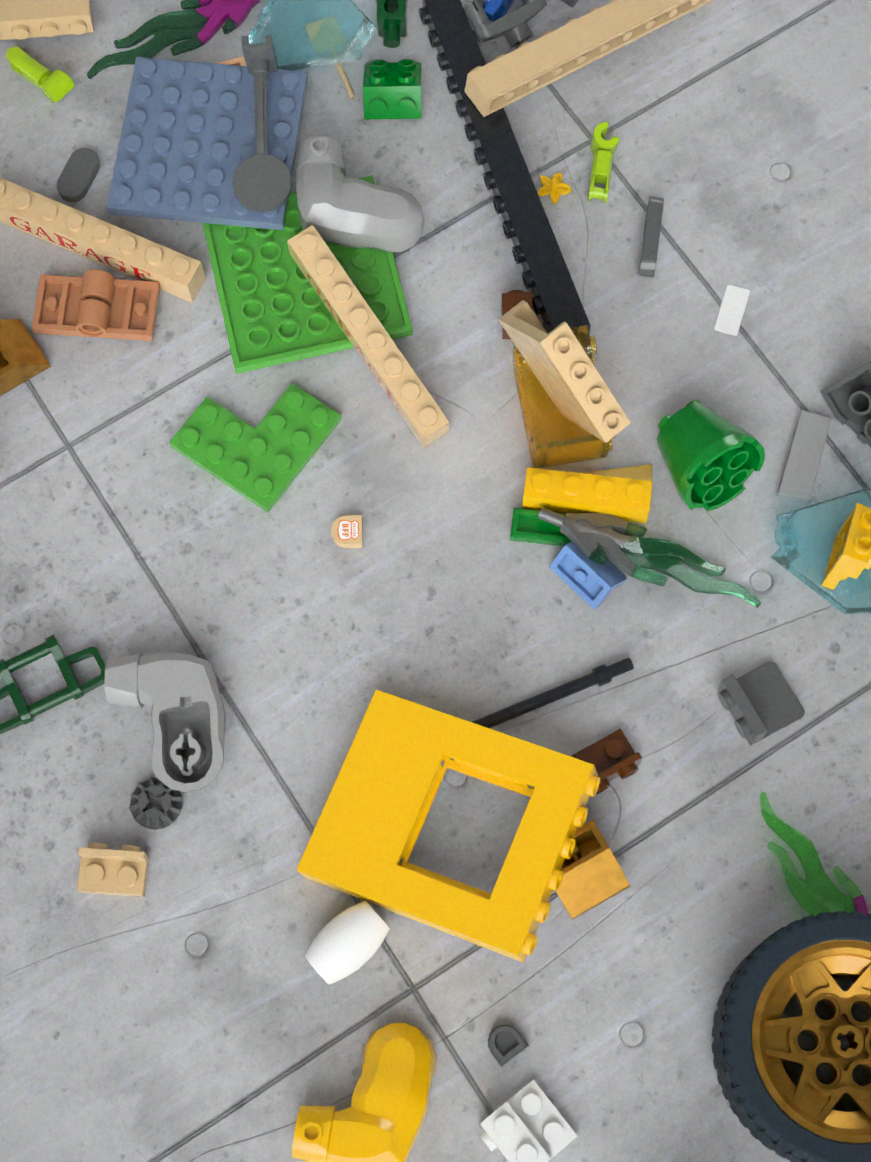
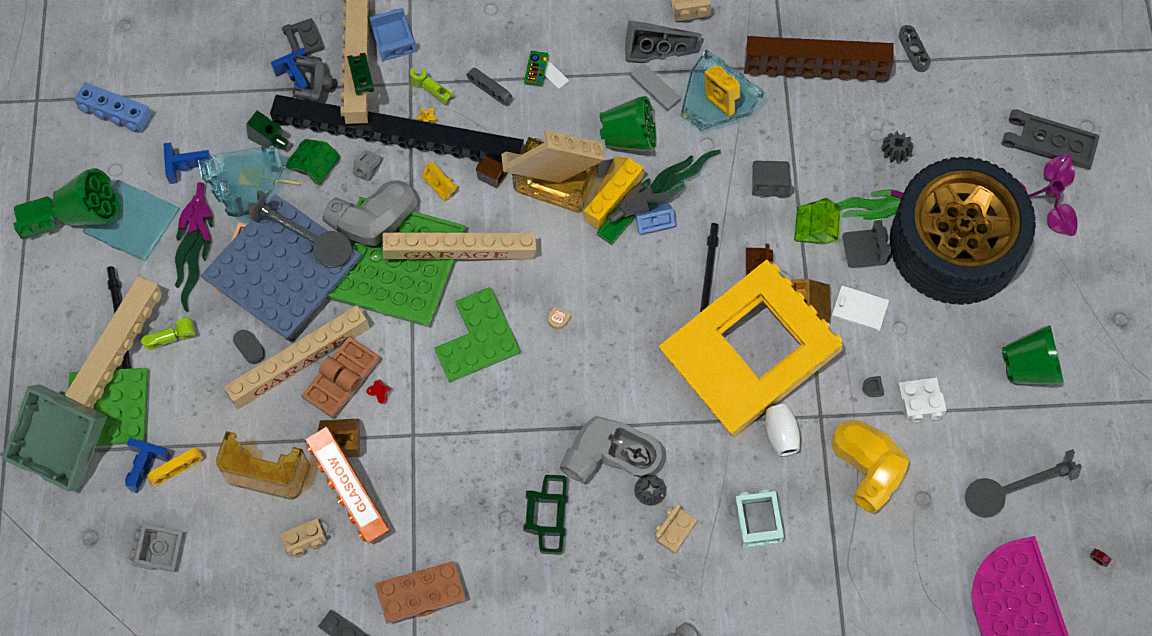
camera: 60 degrees left, 5 degrees down
(104, 366) = (379, 390): none -> red piece
(160, 1004) = (760, 538): none -> light aqua window
(428, 153) = (365, 164): none -> light grey bracket
(456, 265) = (438, 181): none -> yellow plate
(541, 58) = (360, 73): none -> dark green plate
(628, 954) = (860, 308): none -> white container
(648, 72) = (392, 34): none -> medium blue panel
(724, 281) = (536, 68): none -> green tile
(729, 812) = (817, 222): none -> clear neon green slope
(734, 906) = (867, 246): none -> dark grey bracket

